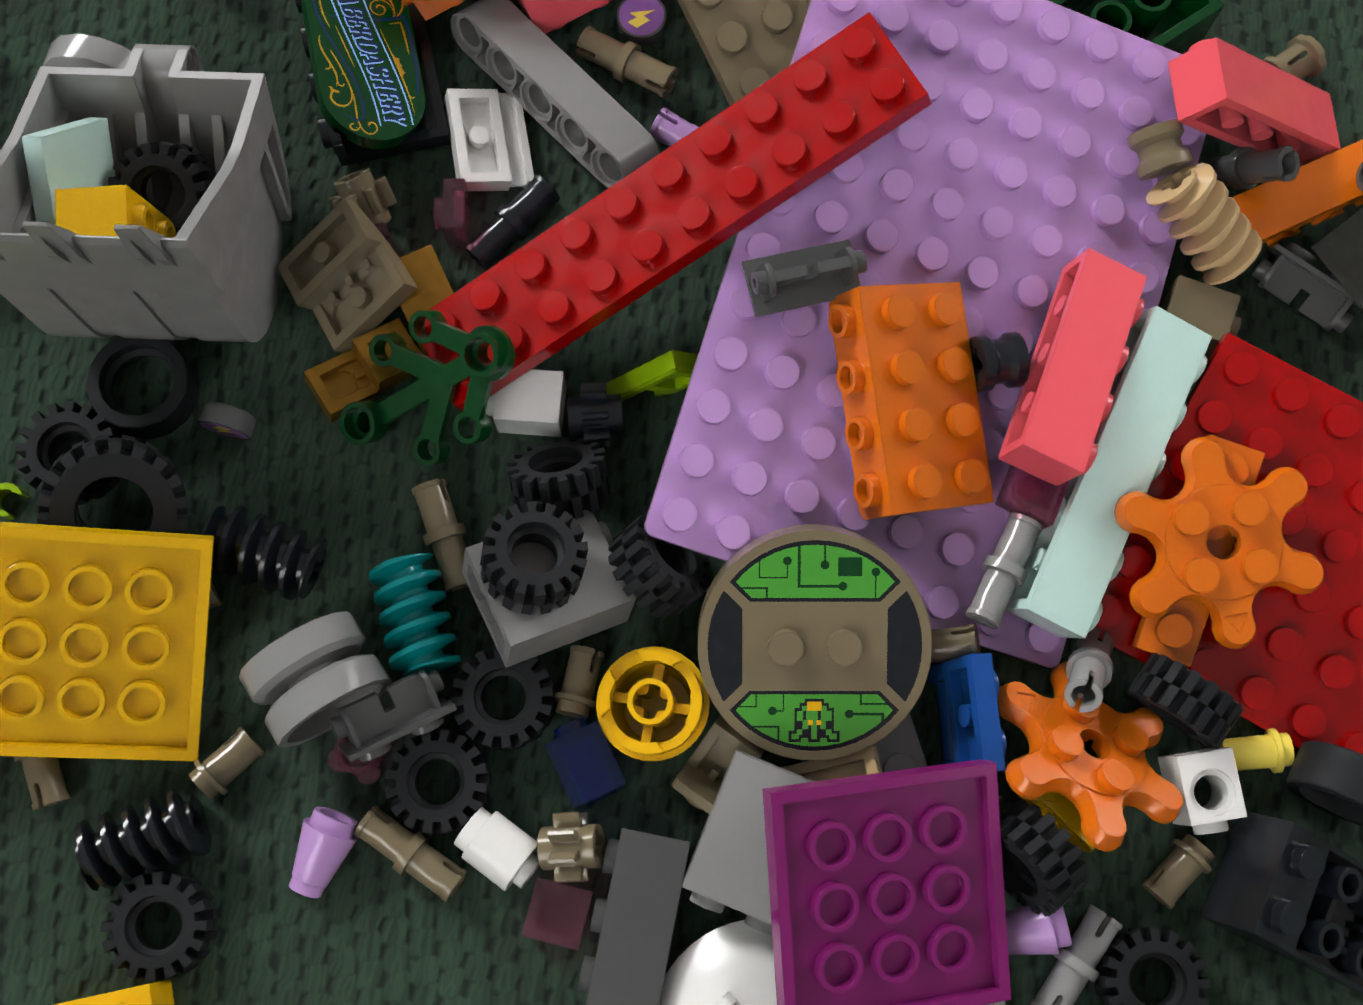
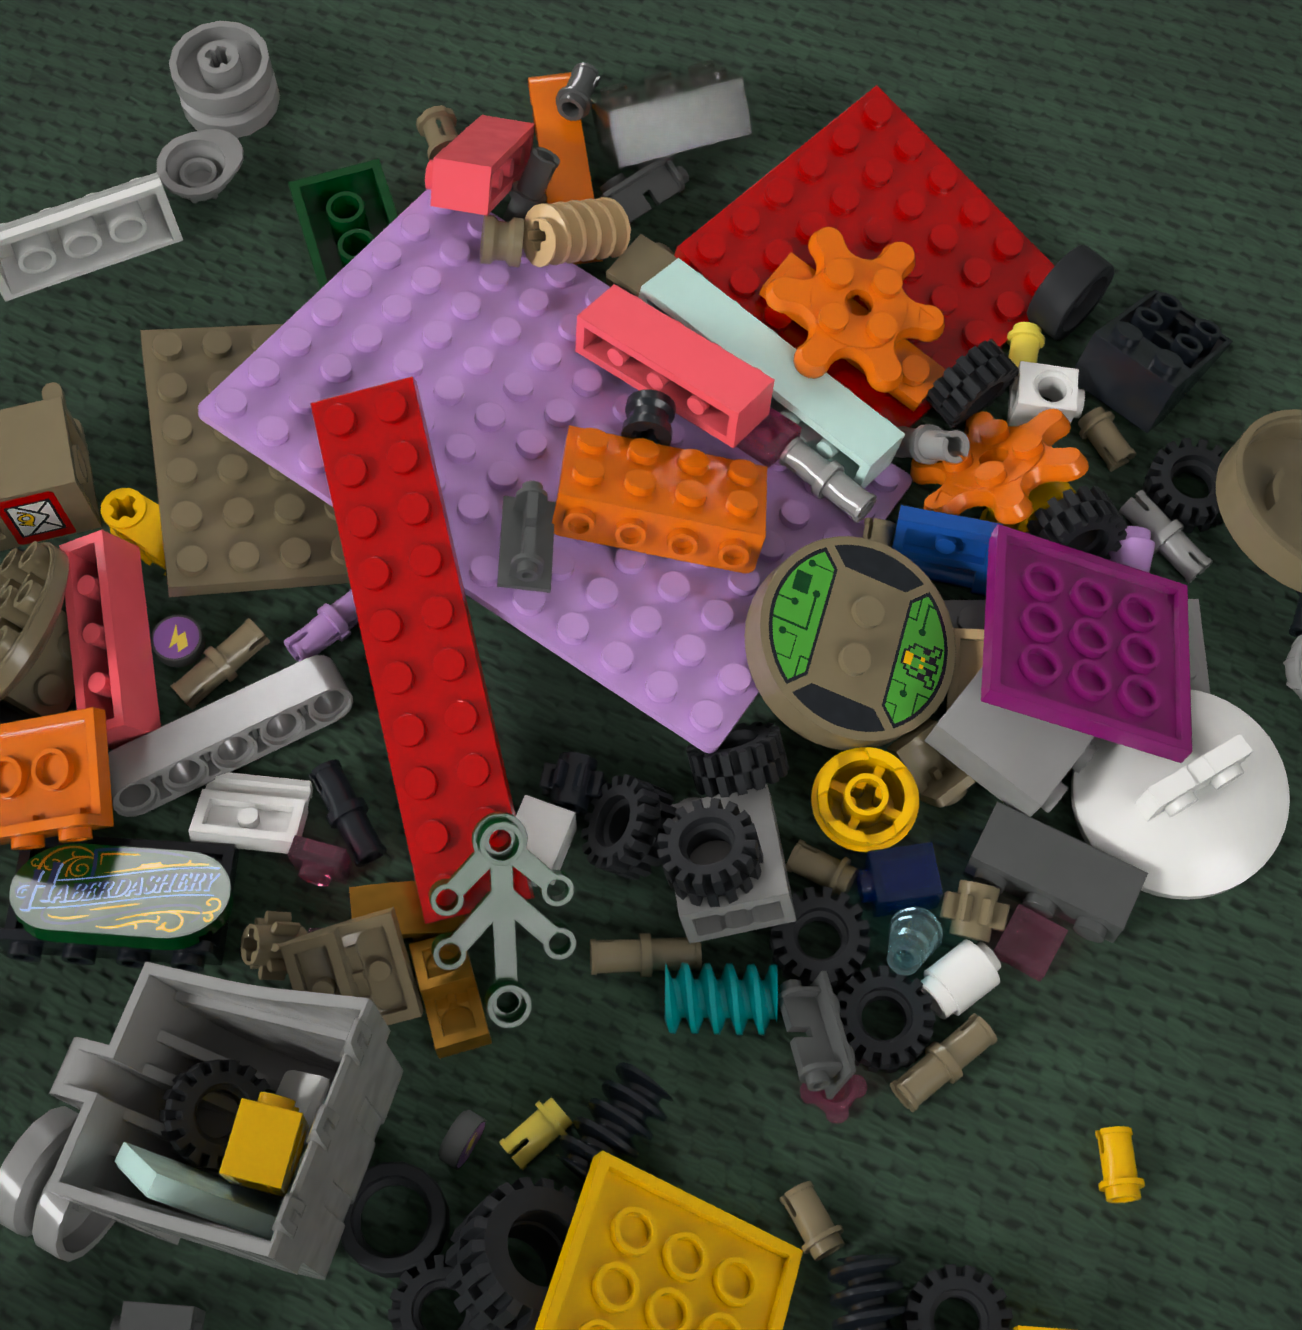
camera: 70 degrees left, 10 degrees down
(261, 492) = (540, 1130): none -> light yellow pin
(312, 676) = (768, 1096): light grey wheel -> none
(321, 850) = (921, 1146): lavender cone -> none
(520, 789) = (912, 939): none -> clear light blue cone
(661, 375) = (552, 716): lime tile -> none

